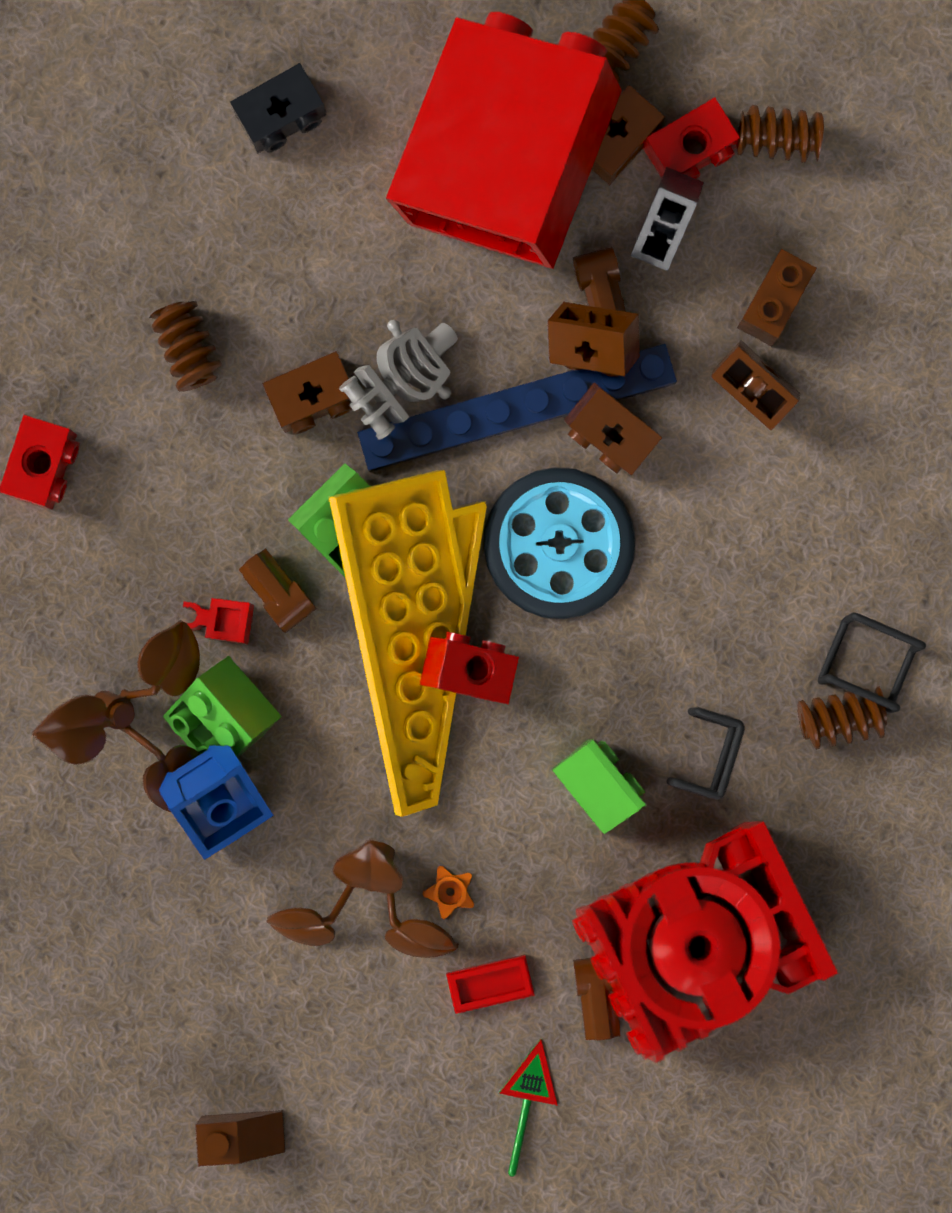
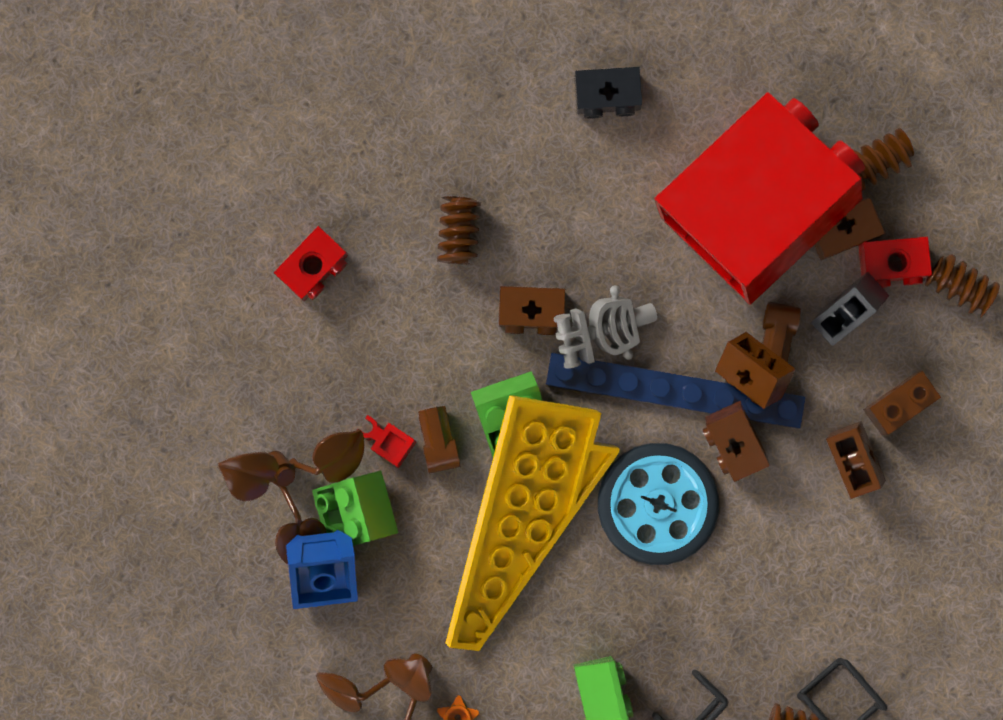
camera: 20 degrees right, 0 degrees up
(447, 668) = (562, 577): red brick -> none

